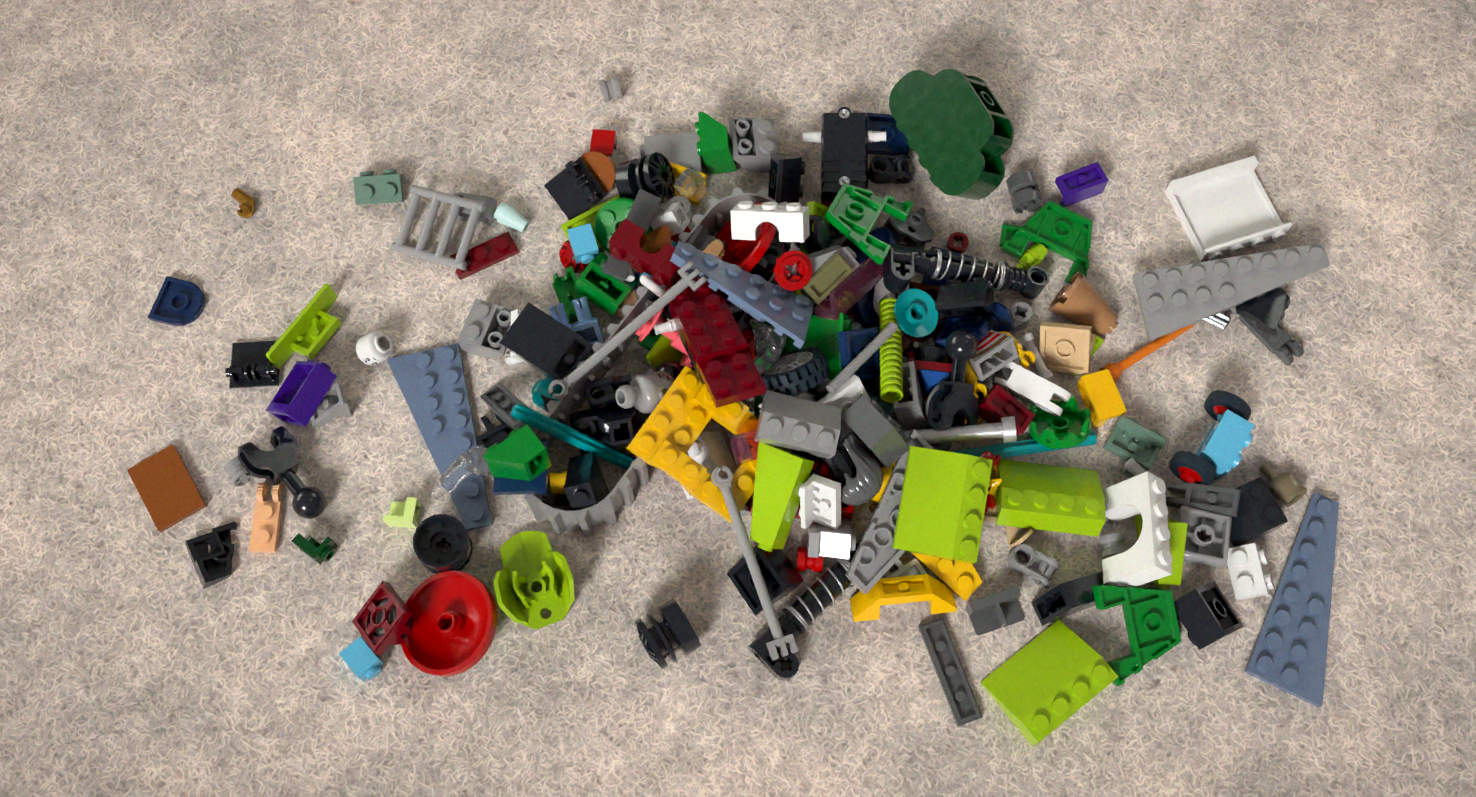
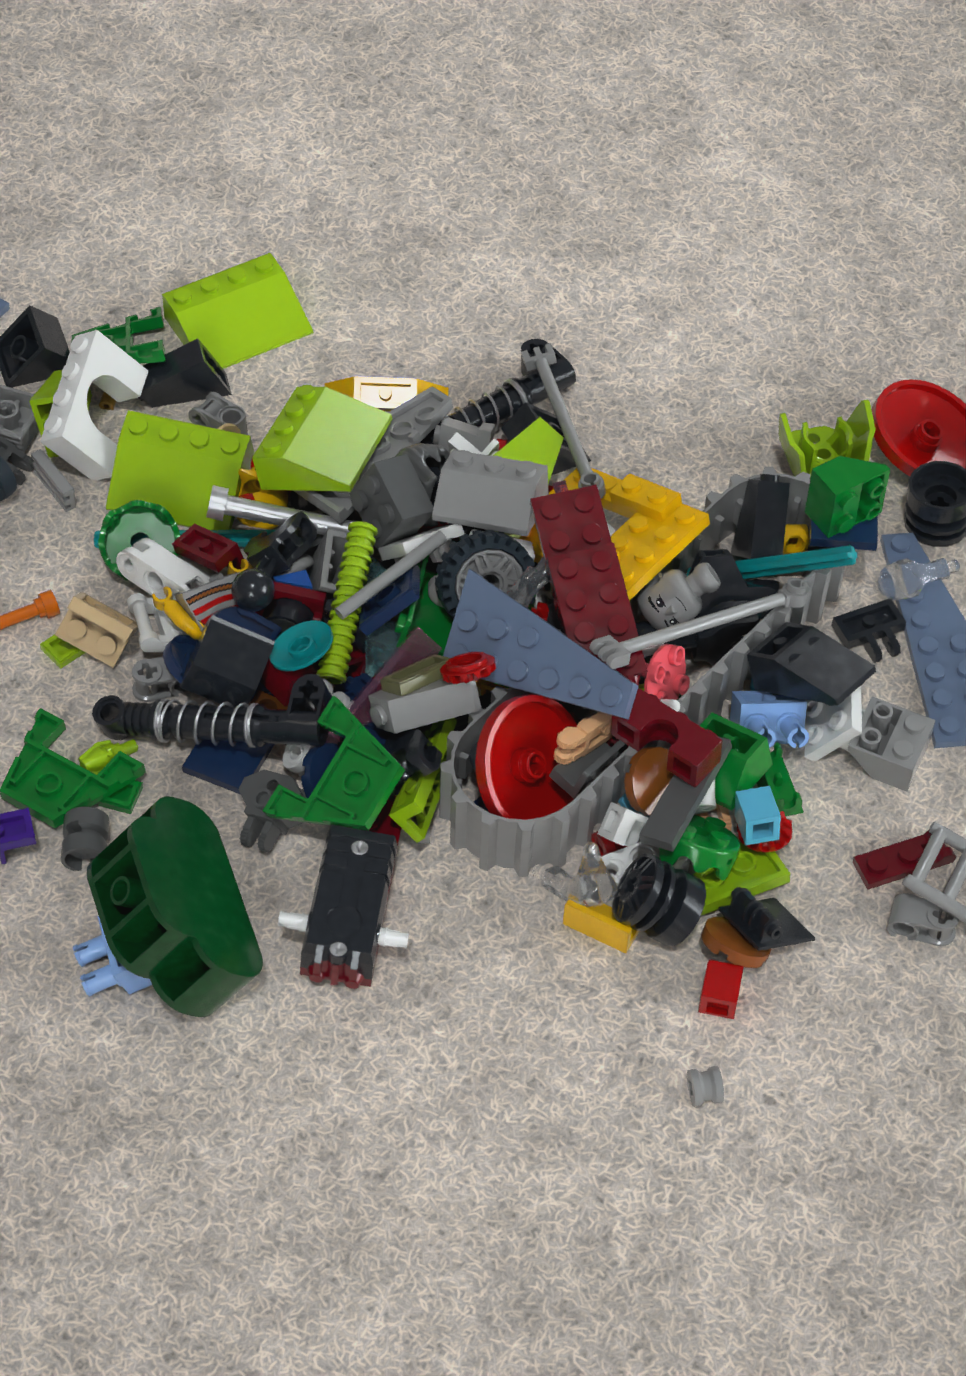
camera: 175 degrees left, 15 degrees down
(501, 402) = (862, 624): dark grey tile -> none
(510, 217) = (865, 903): light aqua cone -> none
(666, 634) = (671, 387): black wheel -> none
(677, 148) = (610, 962): light grey slope -> none
(714, 145) = (544, 950): green slope -> none
(753, 142) = (484, 952): light grey slope -> none
(785, 177) = (447, 878): black slope -> none
(789, 219) = (499, 739): white arch -> none
(891, 169) = (276, 897): black piece -> none
(895, 140) = (280, 974): dark blue tile -> none
(950, 672) = (344, 337): dark grey tile -> none
(957, 236) = (204, 782): dark red bush -> none
(995, 611) = (274, 387): dark grey panel -> none
(1084, 305) = (60, 678): medium nougat cone -> none
(1101, 397) = (71, 566): yellow panel -> none
(1112, 544) = (113, 420): light grey wheel -> none
(1135, 442) = (49, 521): sand green bracket -> none

